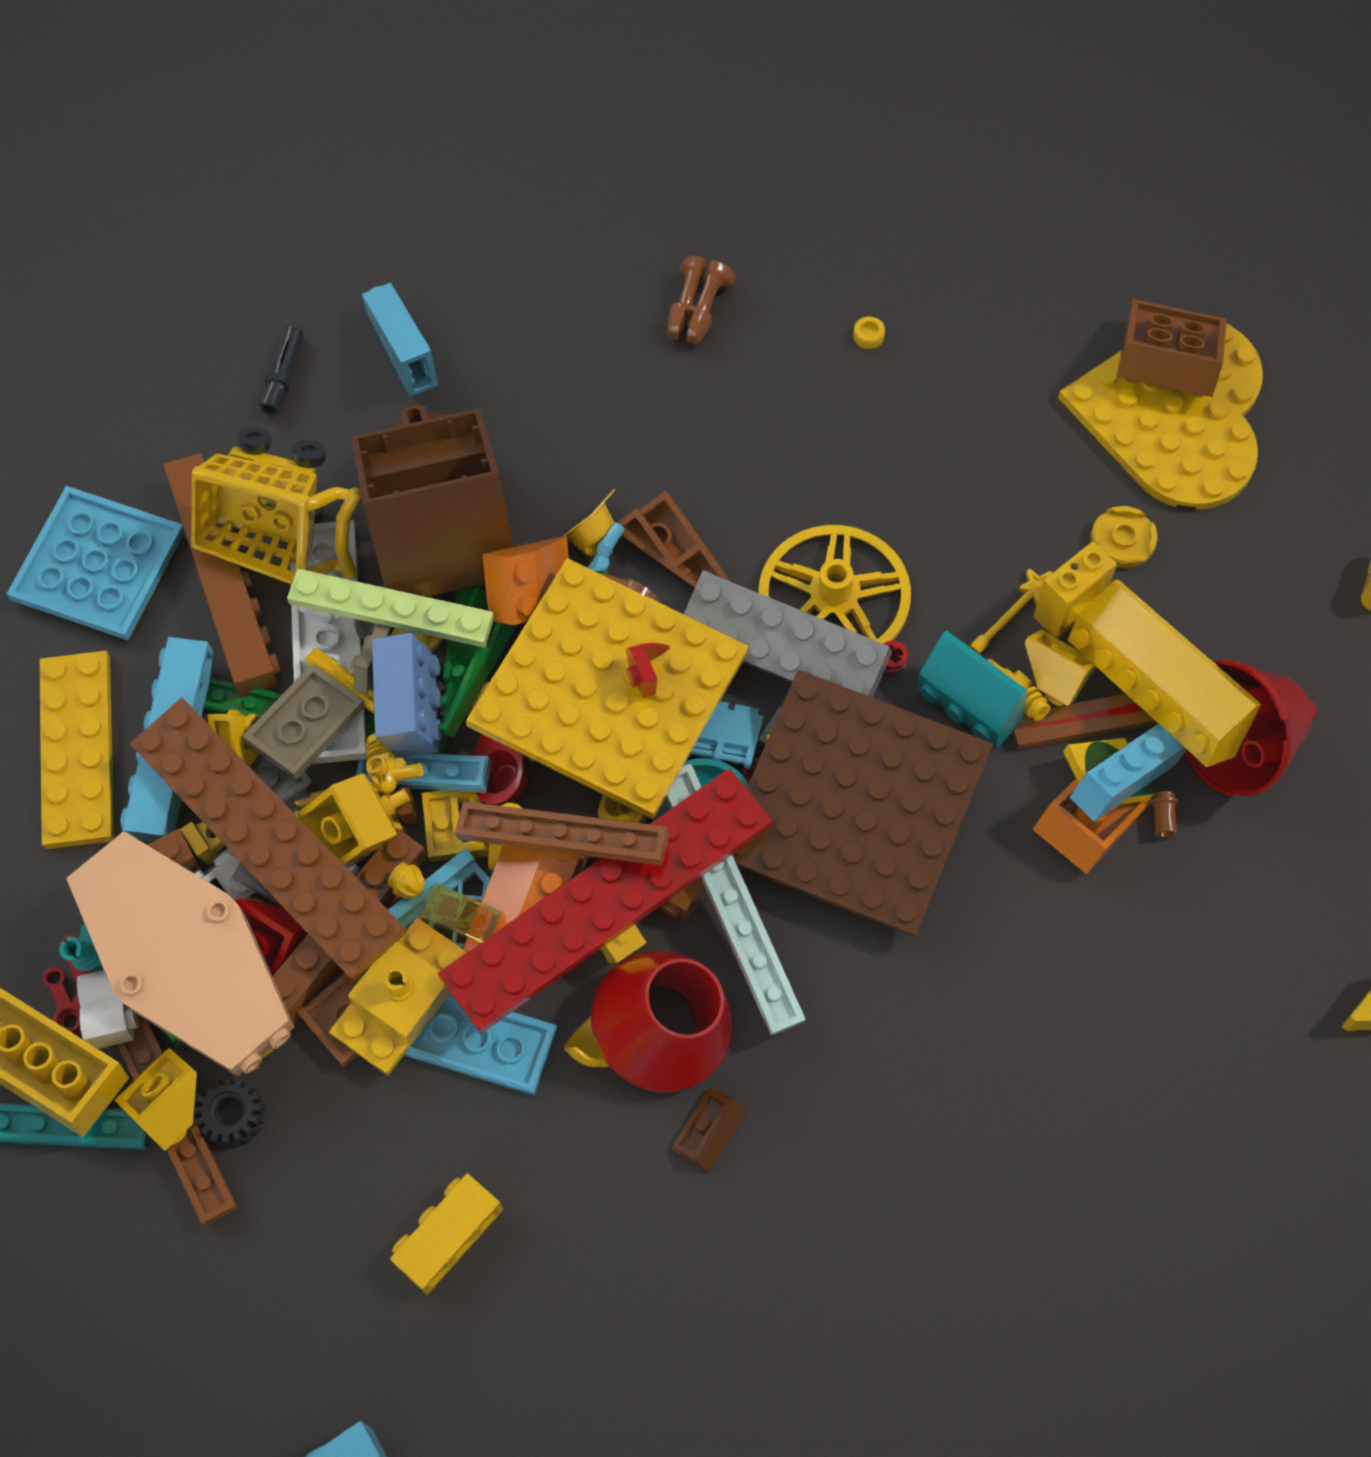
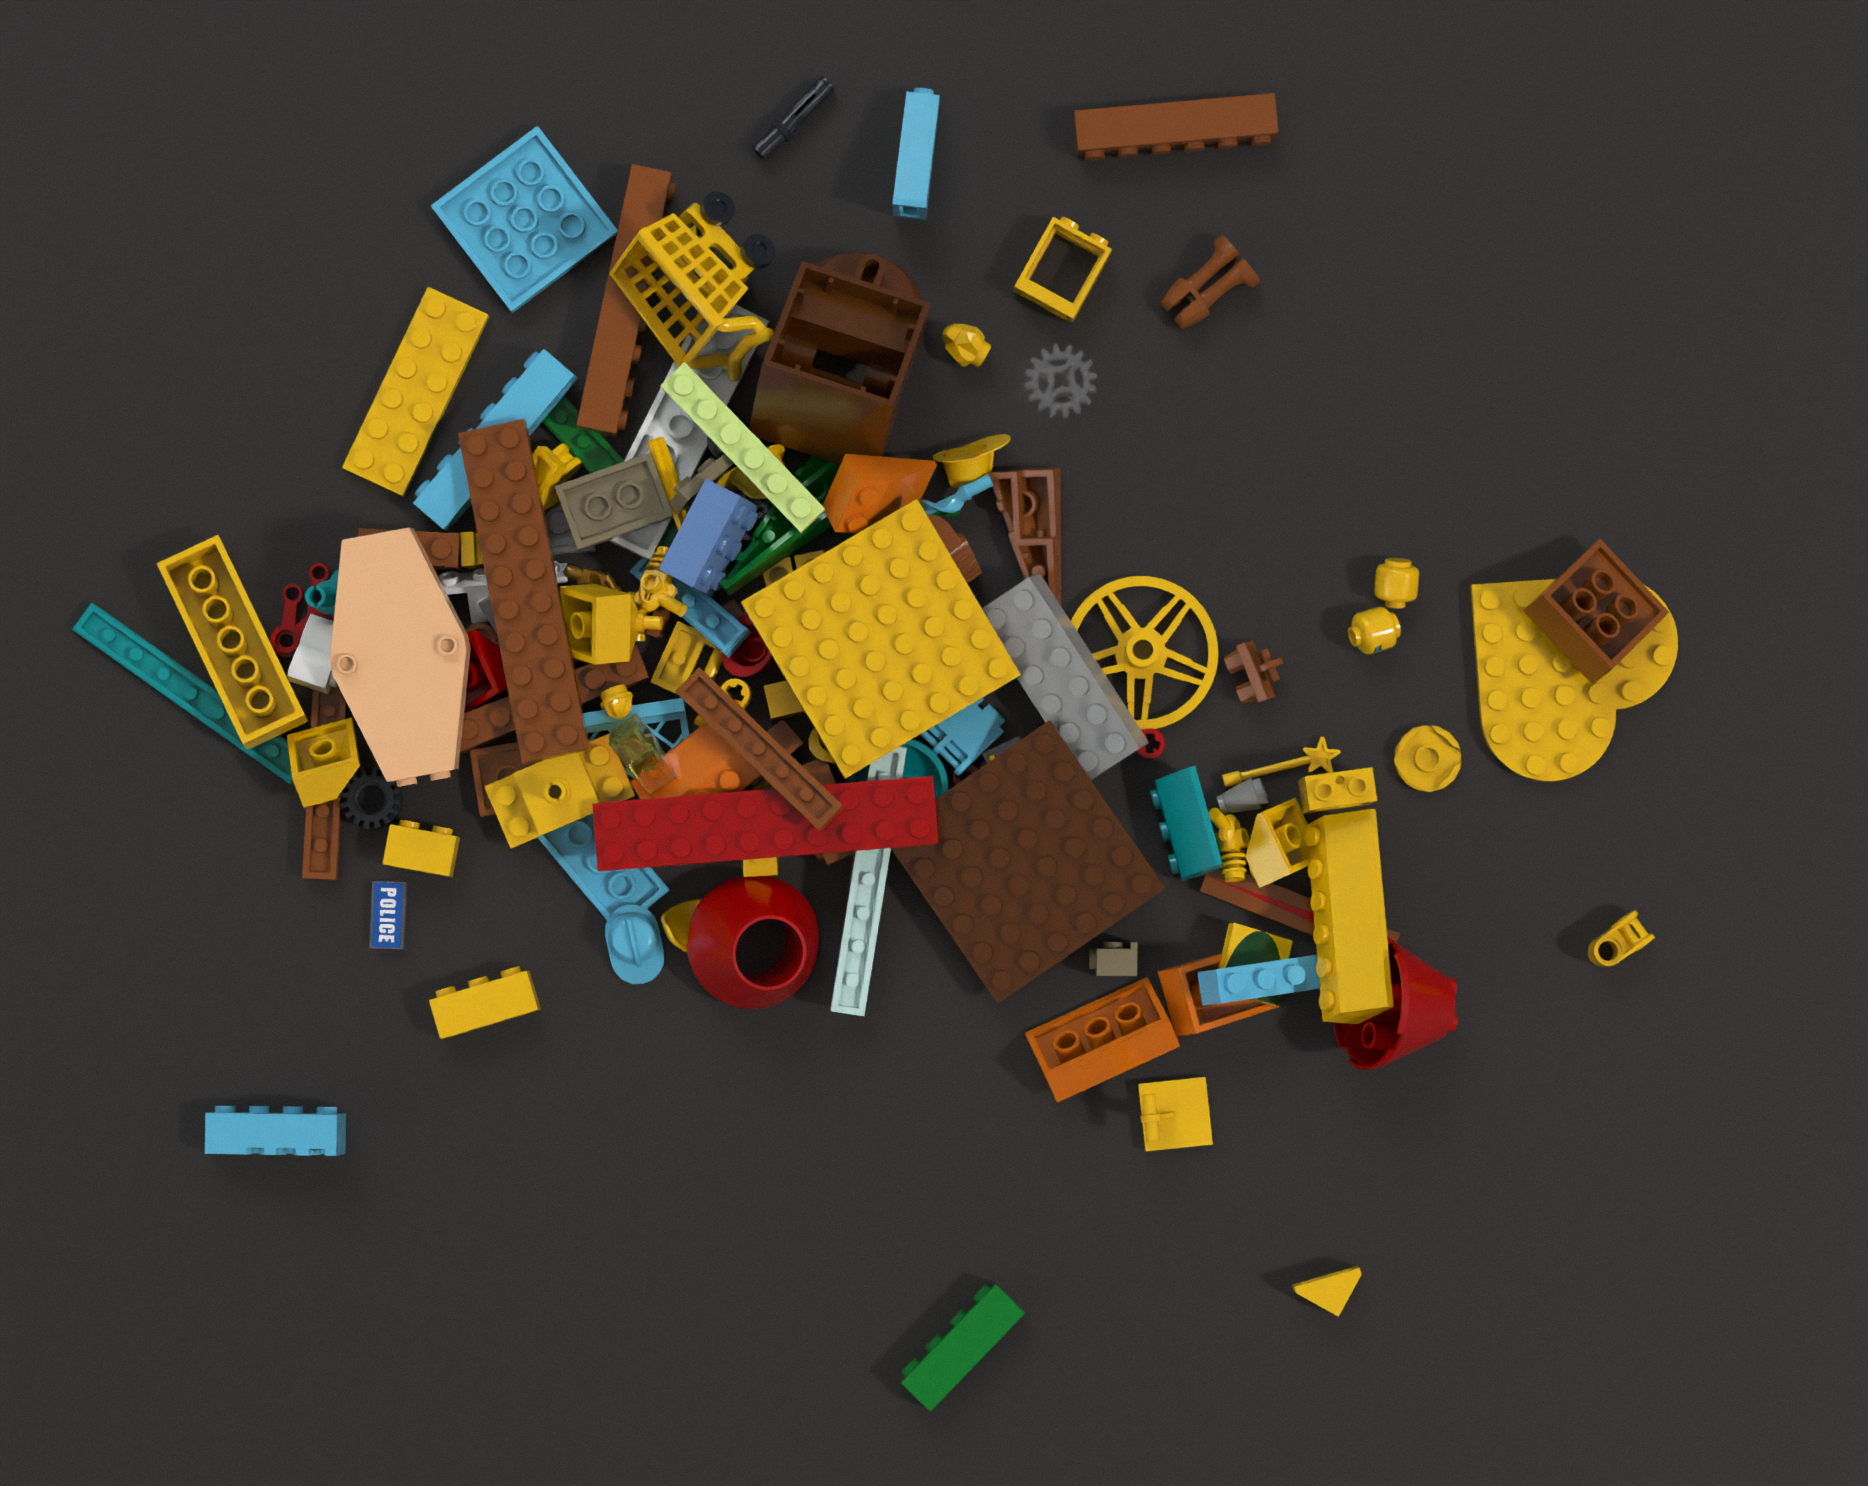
camera: 30 degrees right, 20 degrees up
(302, 1128) = (421, 849): none -> yellow brick
(306, 1210) = (388, 915): none -> tile
(530, 448) = (965, 344): none -> yellow rock
(555, 1093) = (634, 944): none -> medium azure piece
(560, 796) = (782, 701): none -> yellow brick
(575, 378) = (1046, 299): none -> yellow window
(592, 211) = (1175, 125): none -> dark orange brick
(640, 438) = (1048, 372): none -> clear gear
(640, 669) = (908, 651): red plate -> none
(709, 1129) = (737, 1048): reddish brown slope -> none
(869, 332) = (1345, 413): yellow tile -> none
(948, 561) = (1248, 658): none -> dark orange hips
(990, 842) = (1114, 959): none -> dark tan brick
(1000, 421) = (1396, 582): none -> yellow head
(1003, 645) = (1243, 797): none -> light grey cone
(1010, 464) = (1374, 630): none -> yellow head
(1027, 915) = (1102, 1039): none -> orange slope
(1098, 1270) = (962, 1346): none -> green brick
(1134, 941) = (1175, 1114): none -> yellow plate
(1164, 810) = (1277, 1026): dark orange pin -> none

